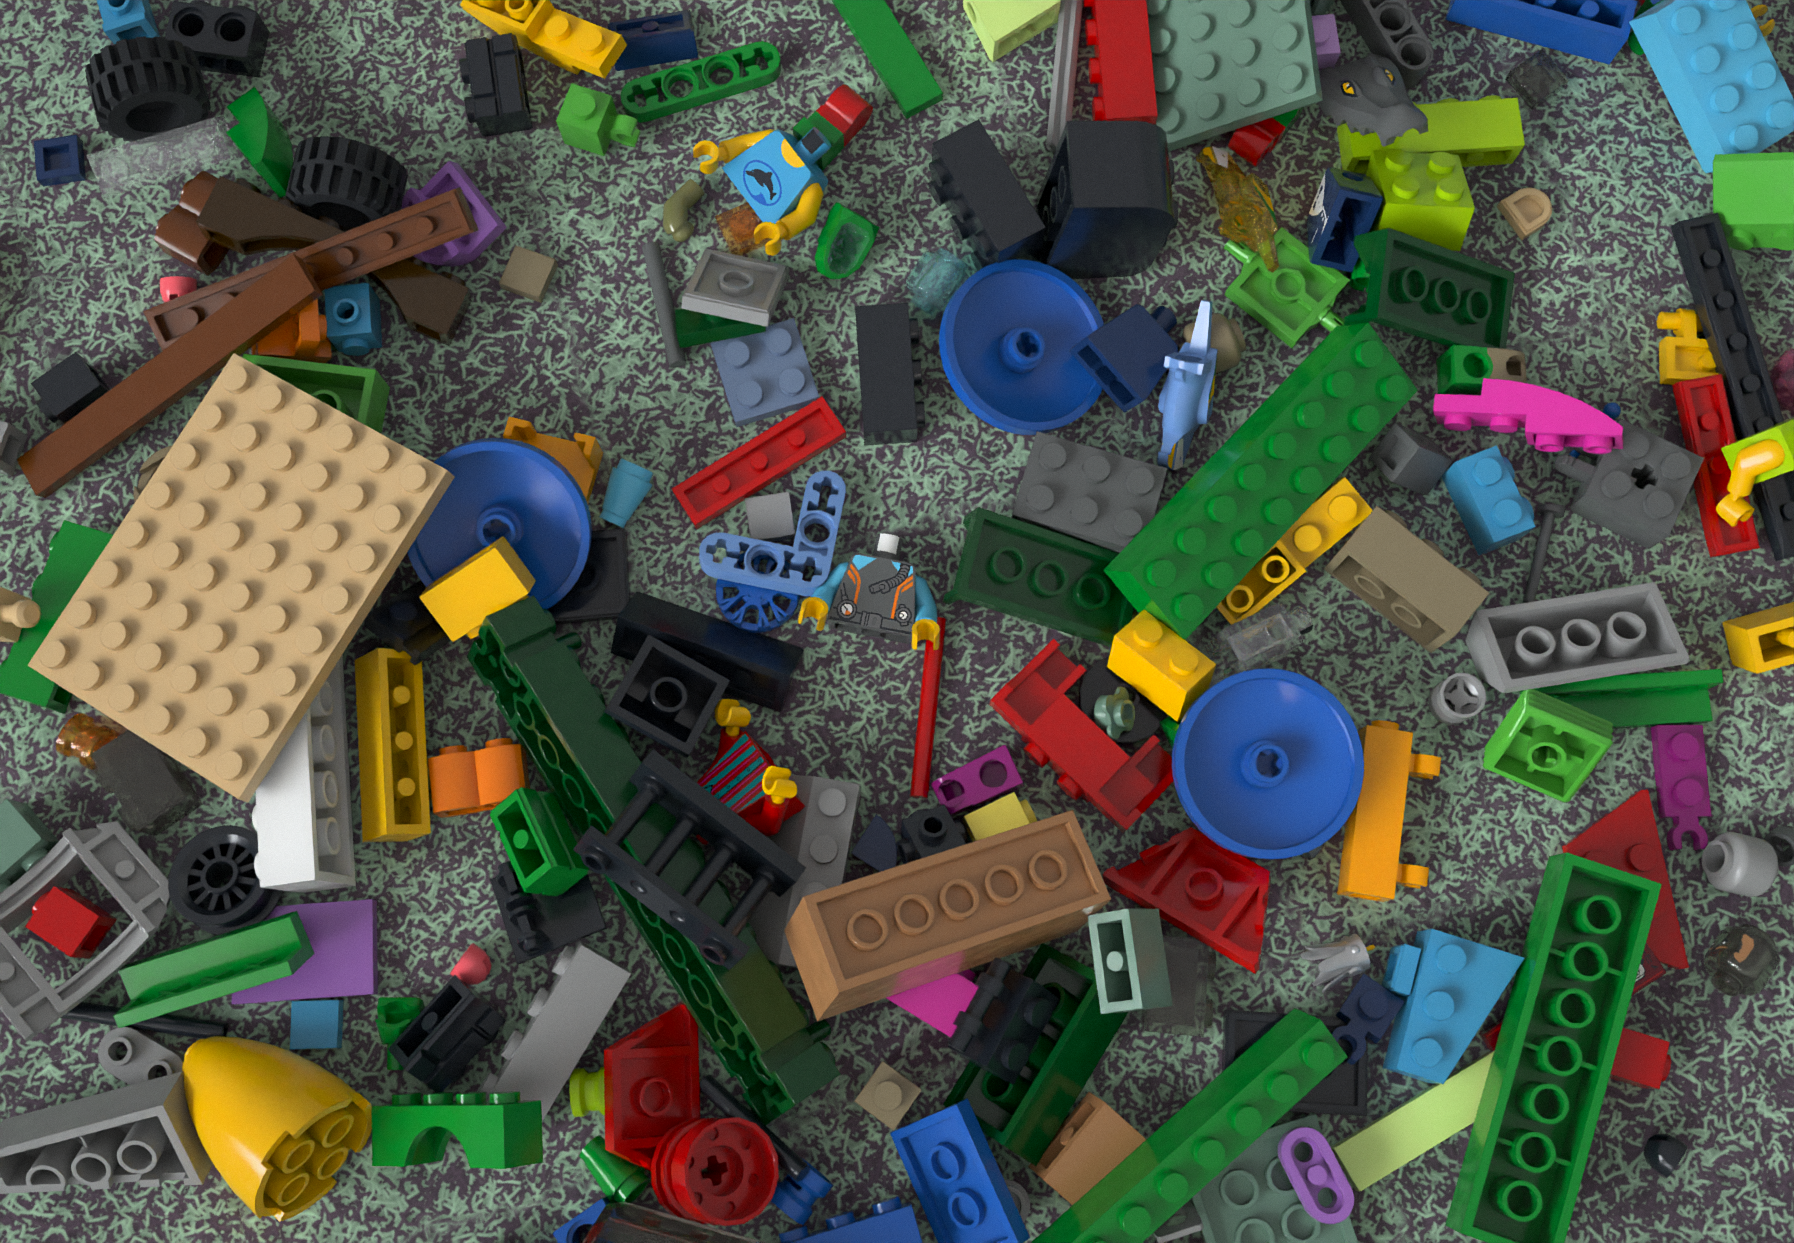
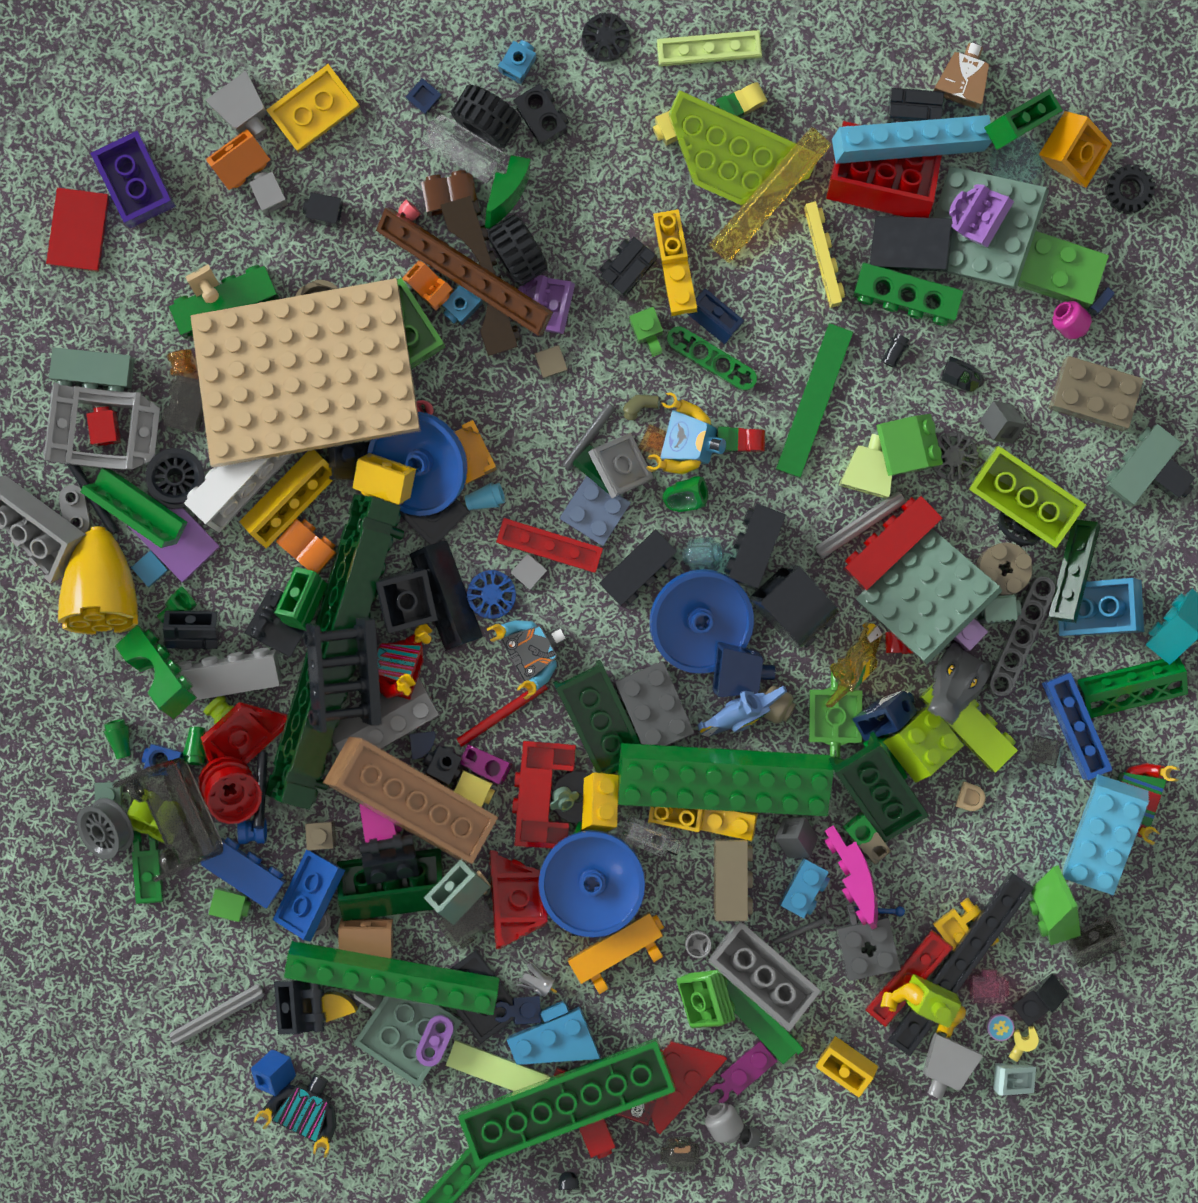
camera: 55 degrees right, 10 degrees up
(169, 376) = (364, 252): reddish brown tile -> none
(472, 966) = (227, 613): coral hinge -> none
(801, 554) = (523, 601): medium blue beam -> none

